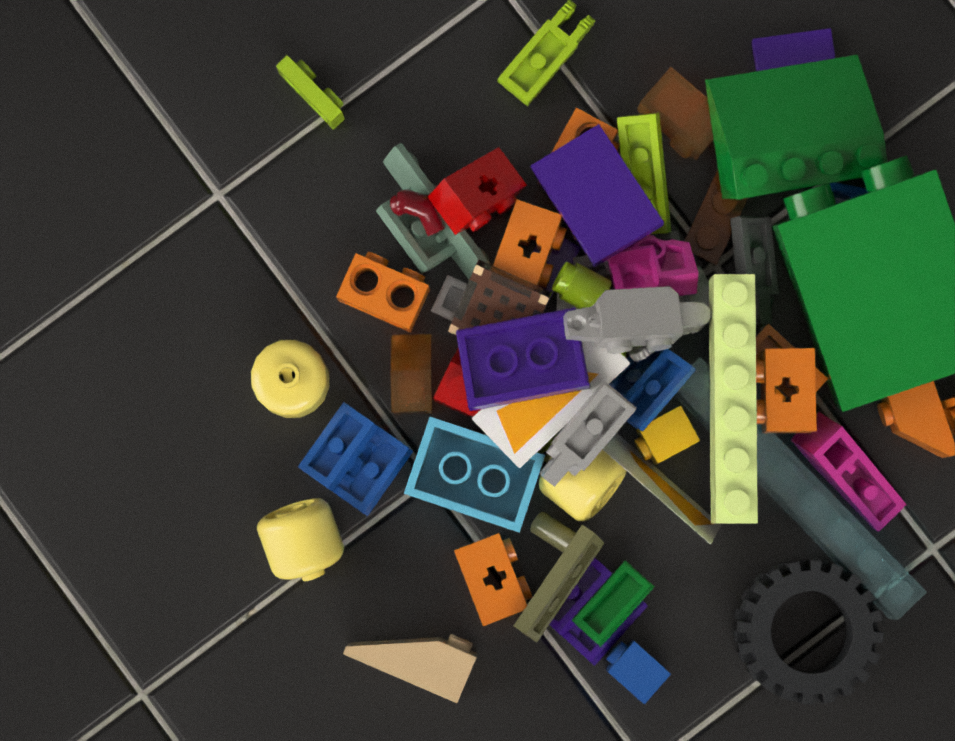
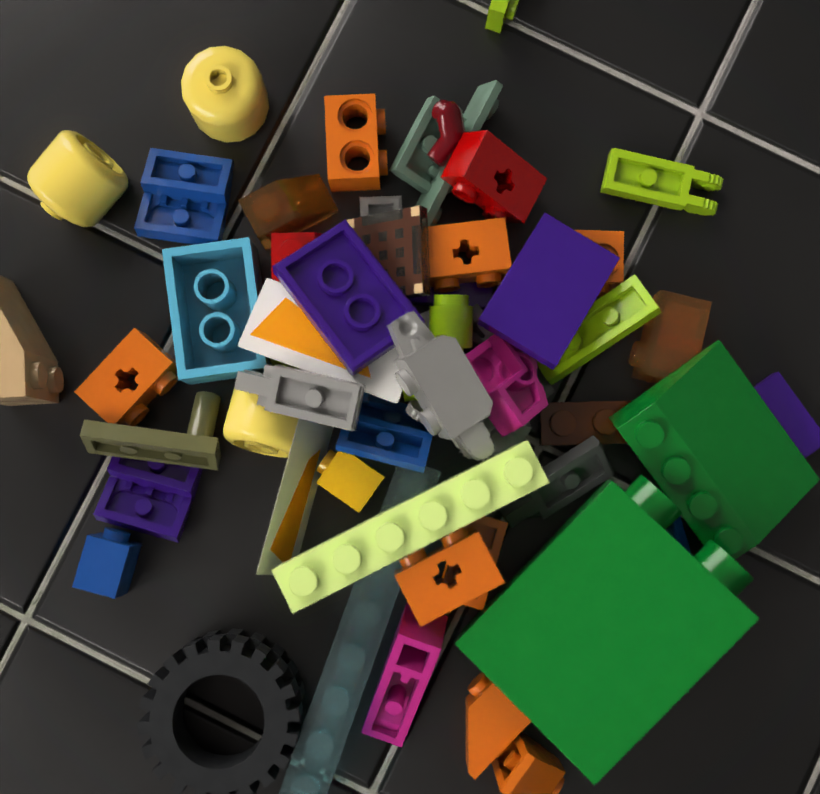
camera: 55 degrees right, 0 degrees up
(613, 603) = (159, 507): green tile -> none

